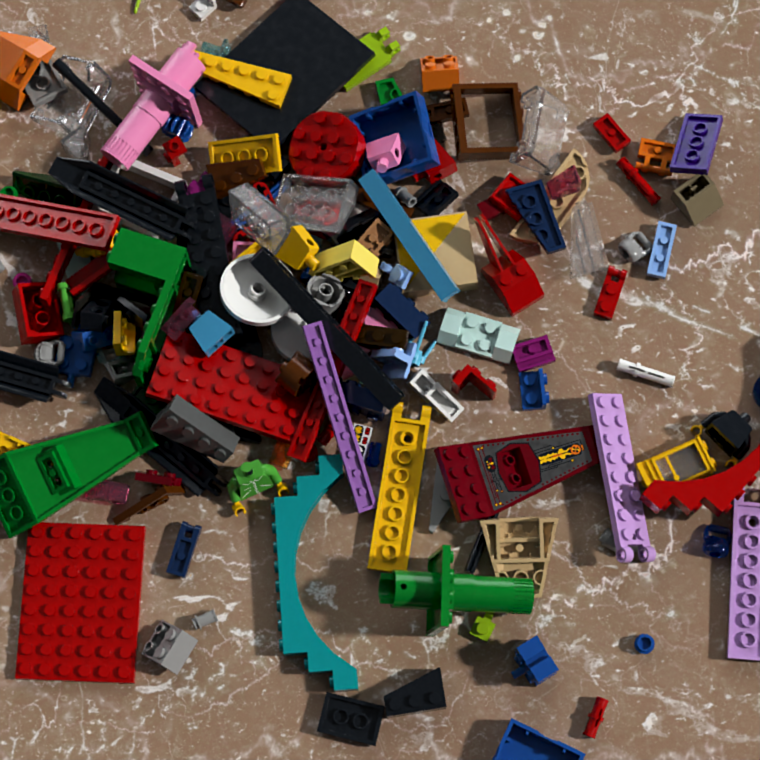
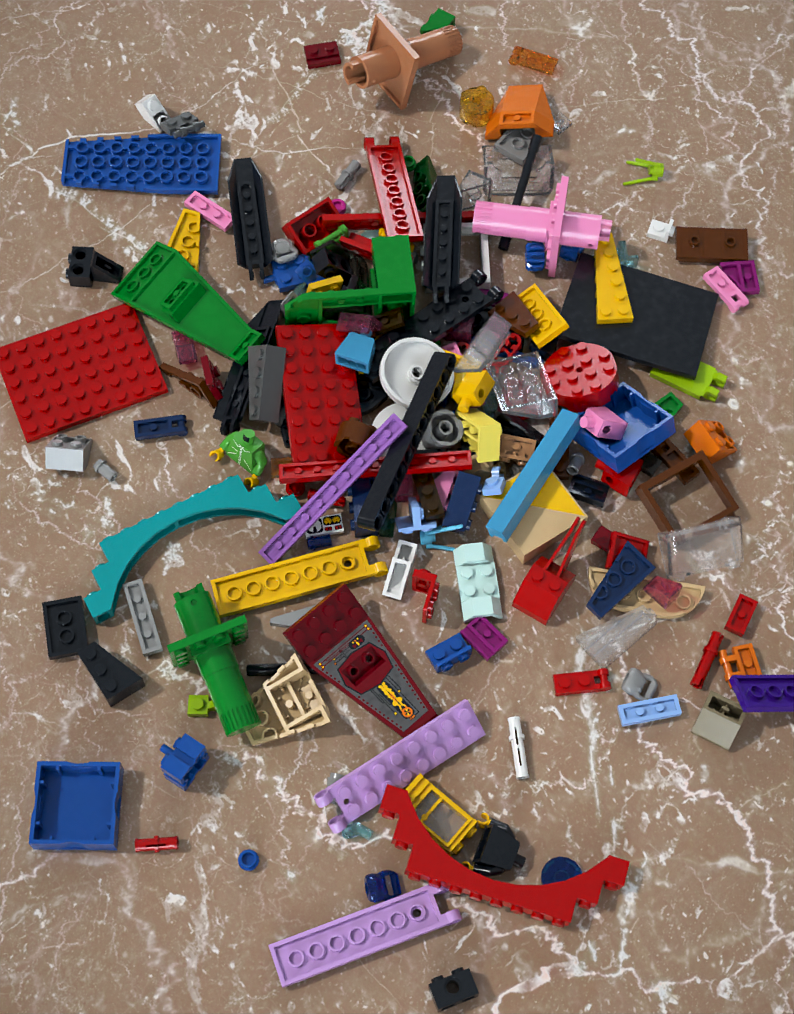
camera: 60 degrees right, 10 degrees down
(174, 149) = (512, 262): red bracket -> none
(373, 644) = (142, 617): none -> light grey plate
(657, 540) = (356, 829): none -> clear light blue arm

